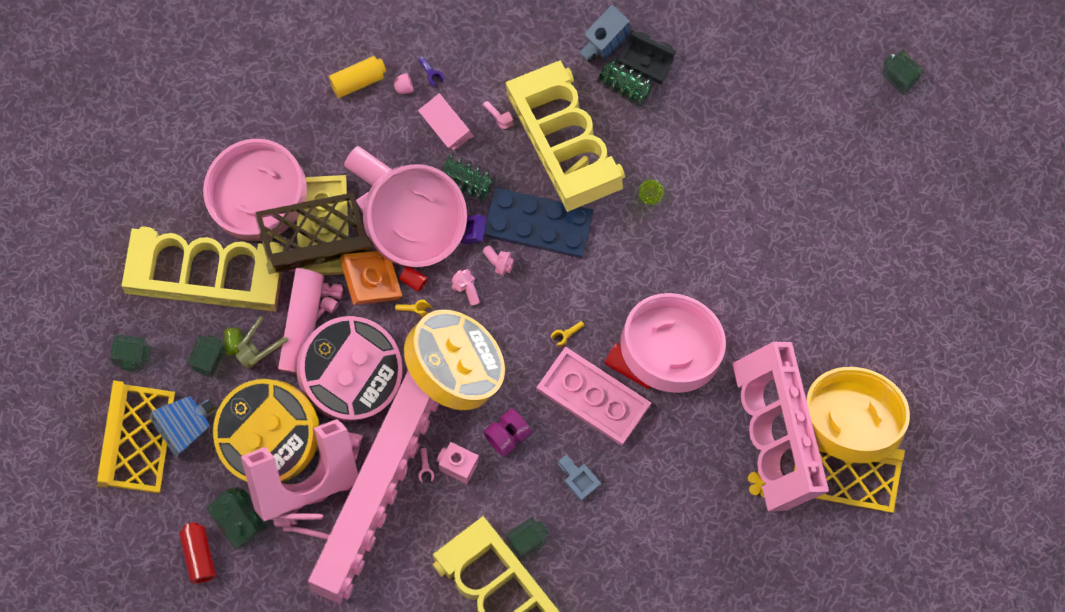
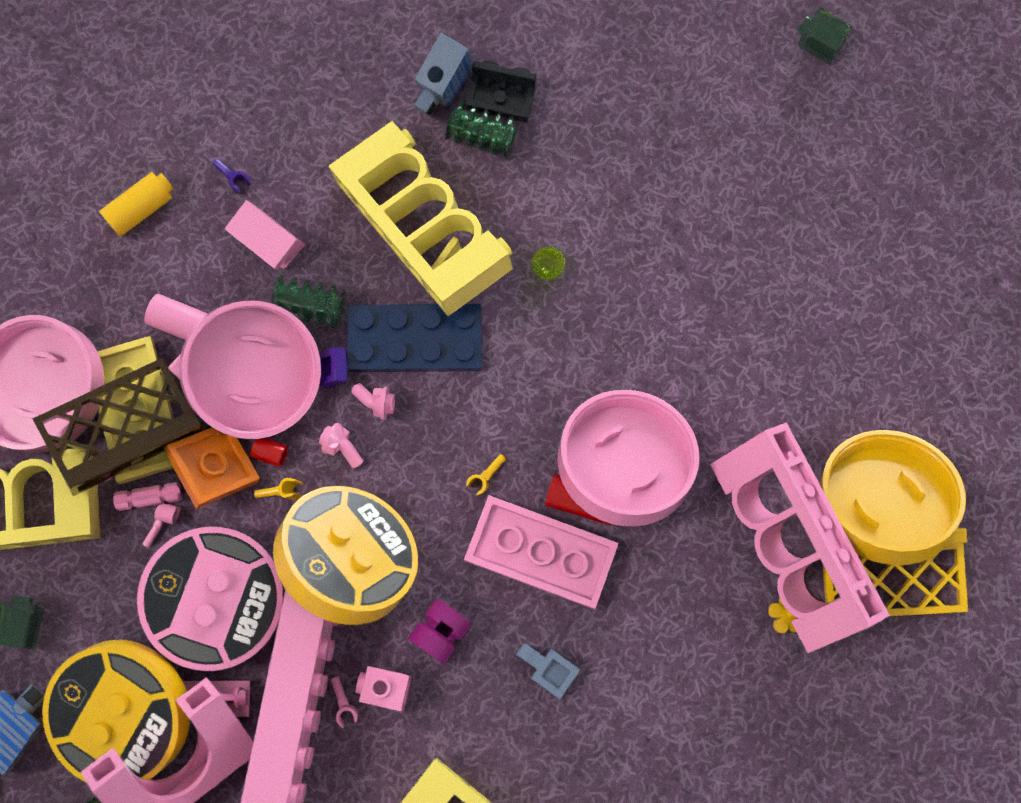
camera: 10 degrees left, 5 degrees up
(232, 338) = (49, 594): clear neon green hinge -> none
(251, 354) = (75, 609): olive plant -> none
(301, 316) = (130, 541): bright pink brick -> none
(403, 84) = (200, 199): bright pink hinge -> none
(503, 120) = (339, 215): bright pink hand -> none
(527, 537) = (501, 770): clear green brick -> none

